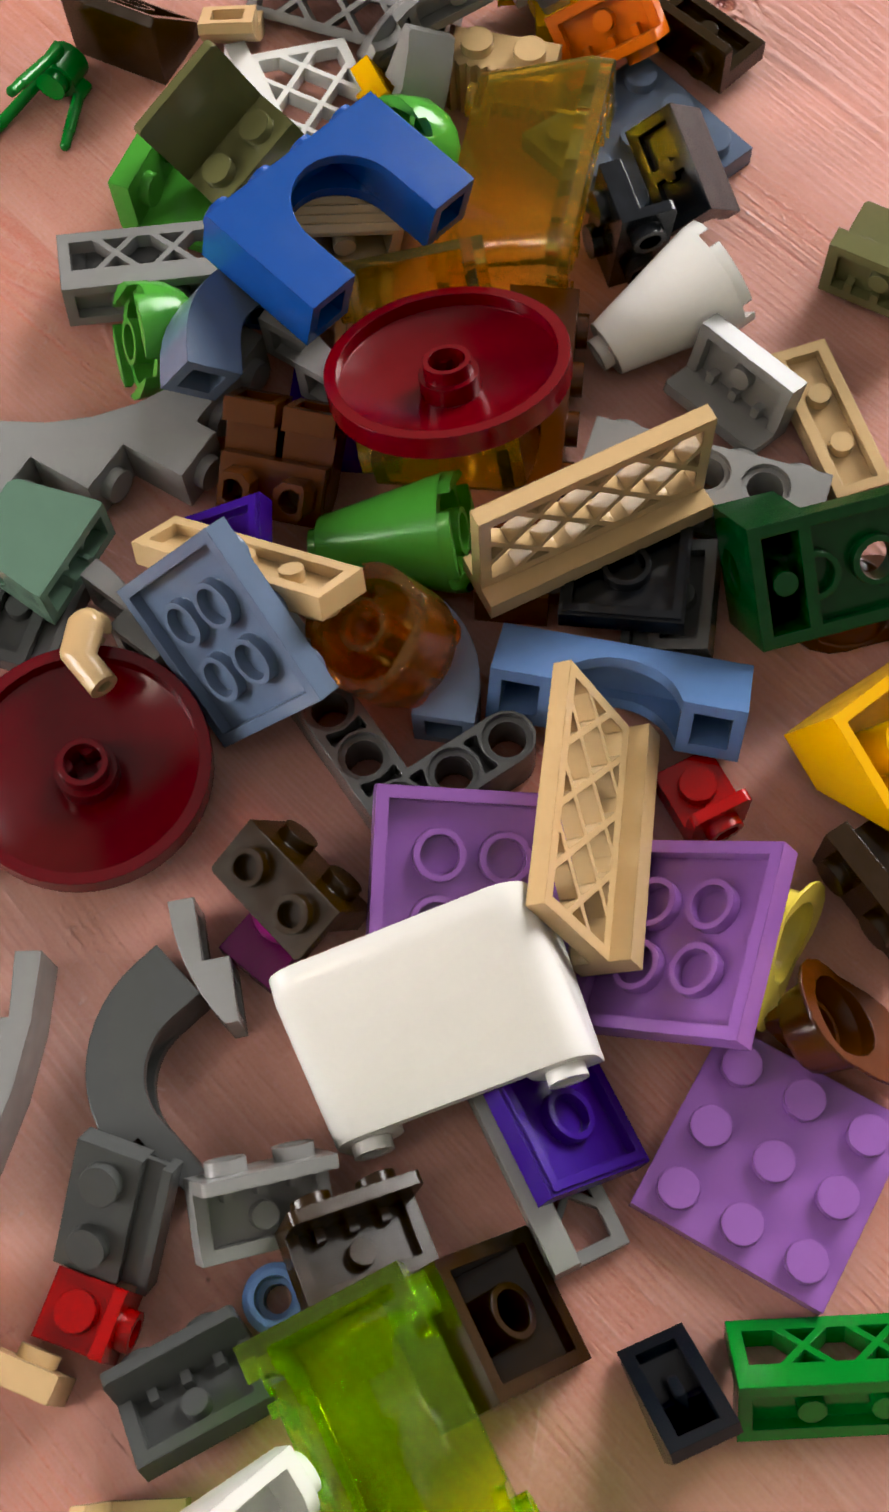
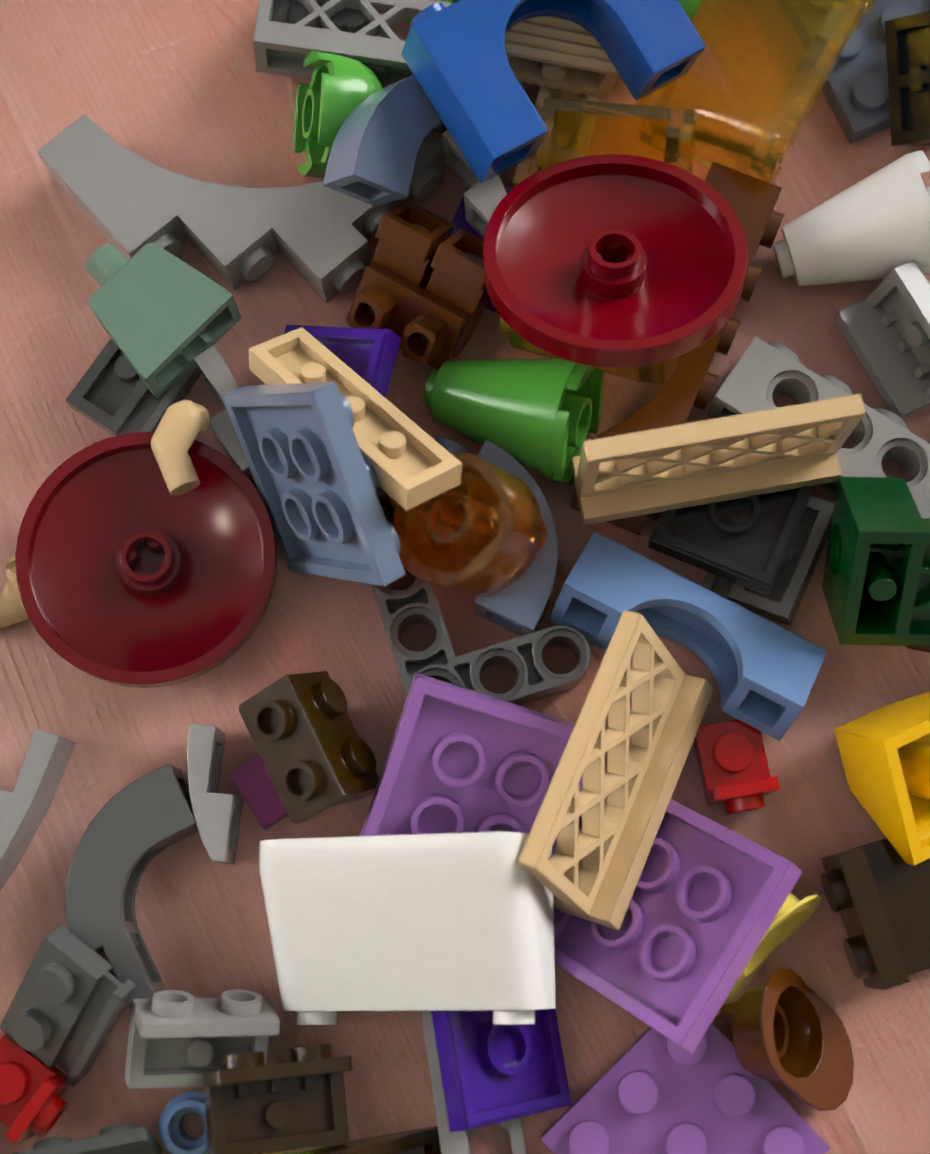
camera: 15 degrees right, 10 degrees up
(620, 230) = (842, 134): black bracket -> none

